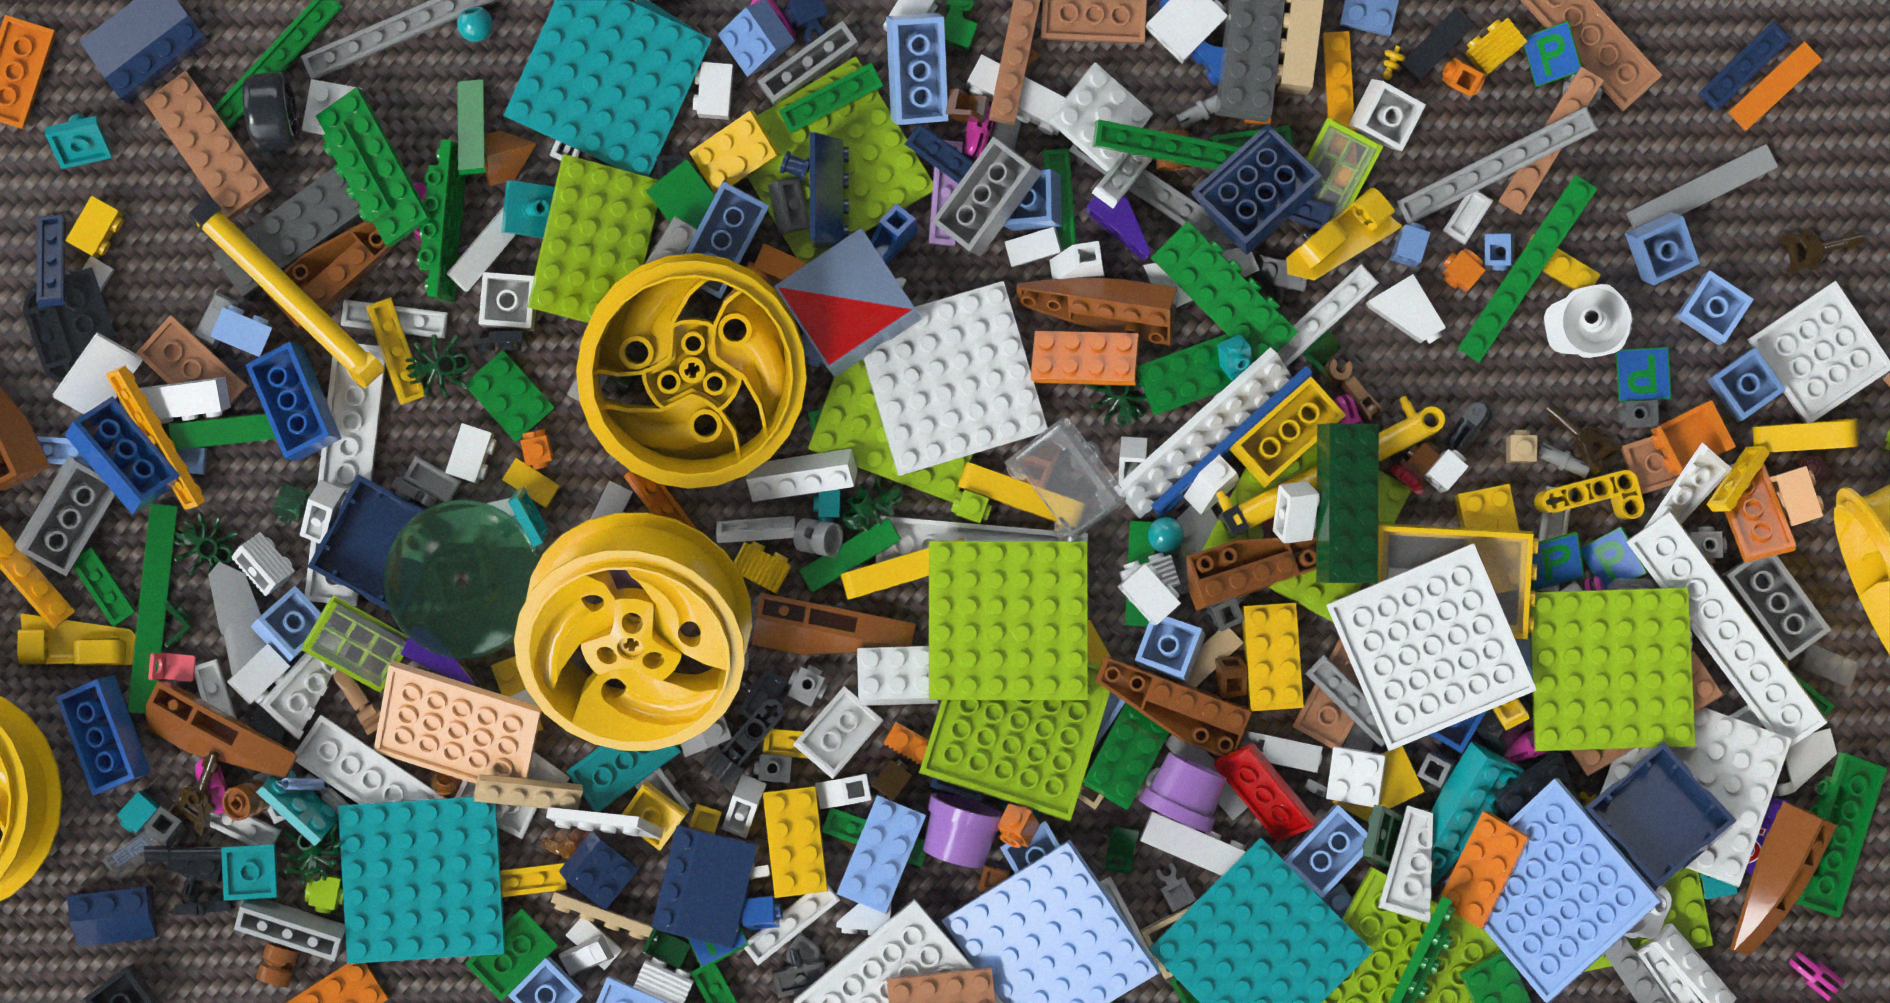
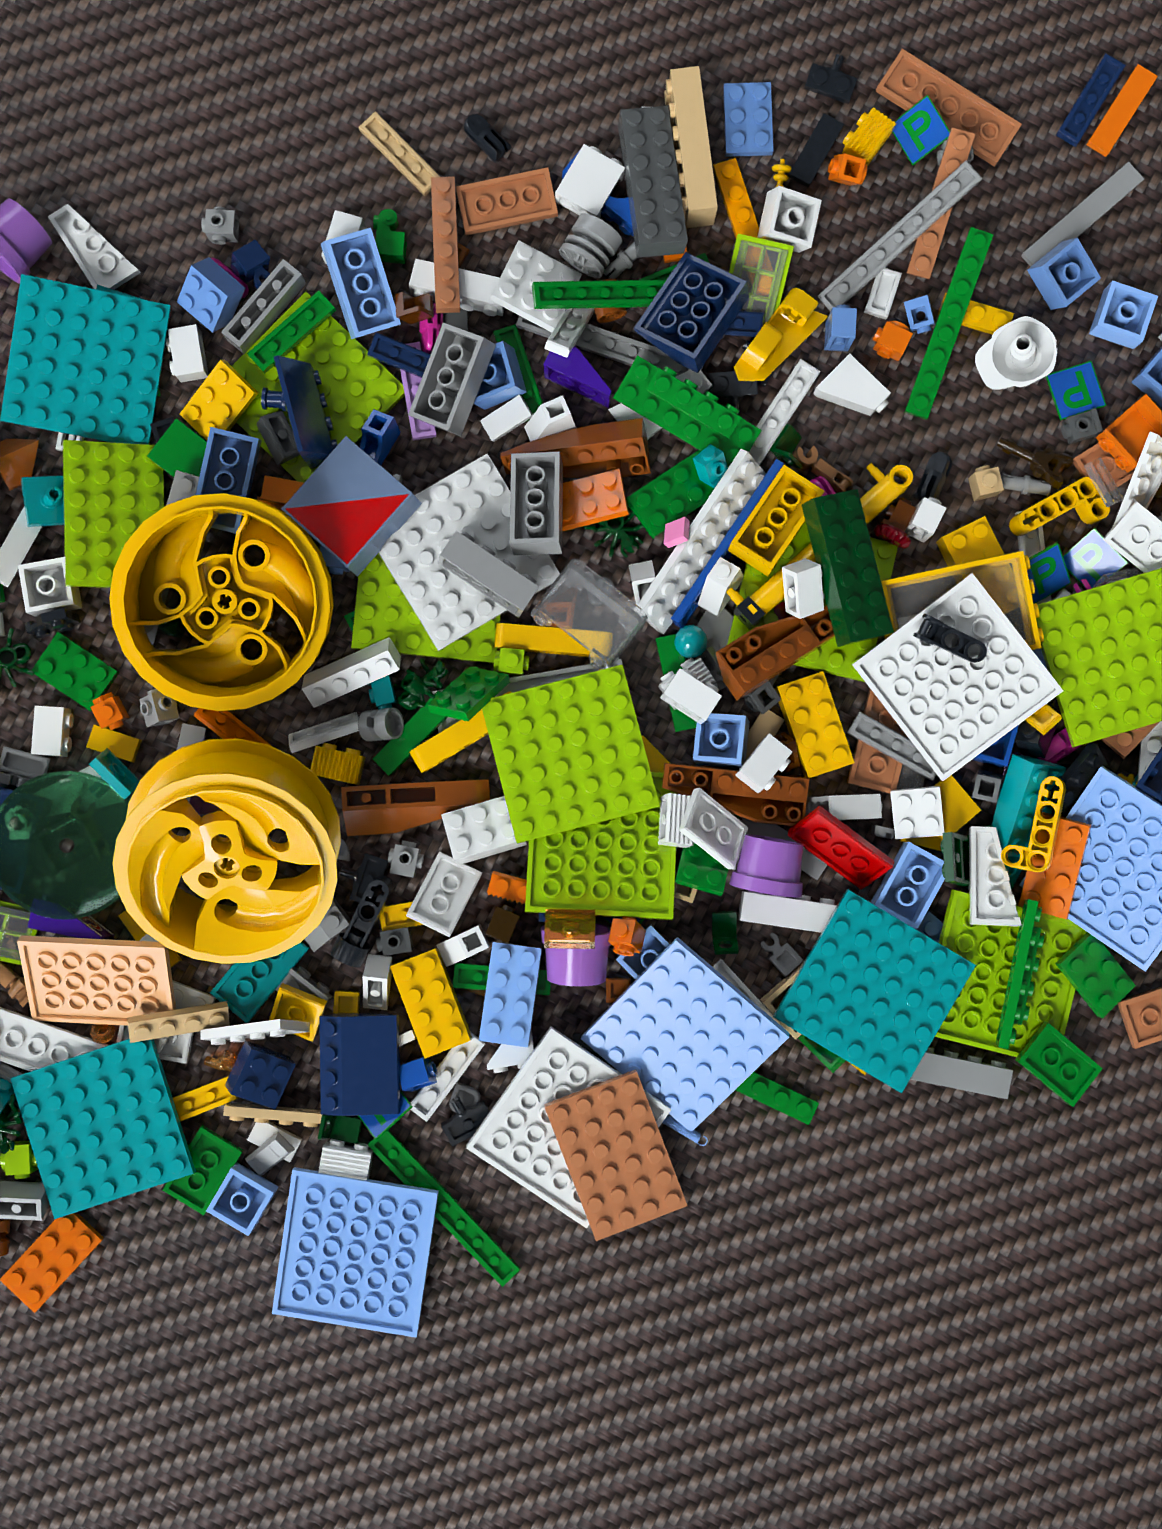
camera: 15 degrees left, 0 degrees up
(589, 458) = (158, 708): none -> light grey brick
(919, 529) = (468, 693): none -> green plate
(961, 802) = (569, 929): none -> clear orange tile
(972, 412) = (487, 573): none -> light grey brick
(1041, 350) = (536, 503): none -> light grey brick
(1102, 719) = (671, 815): none -> white brick
(1137, 737) = (713, 828): none -> white tile
(1165, 92) = (590, 245): none -> light grey wheel
(1180, 417) = (676, 532): none -> bright pink tile
(1206, 684) = (764, 763): none -> white brick
(1421, 596) = (937, 634): none -> black piece
(1476, 821) = (1039, 824): none -> yellow beam
(1644, 480) = (1103, 482): none -> clear tile

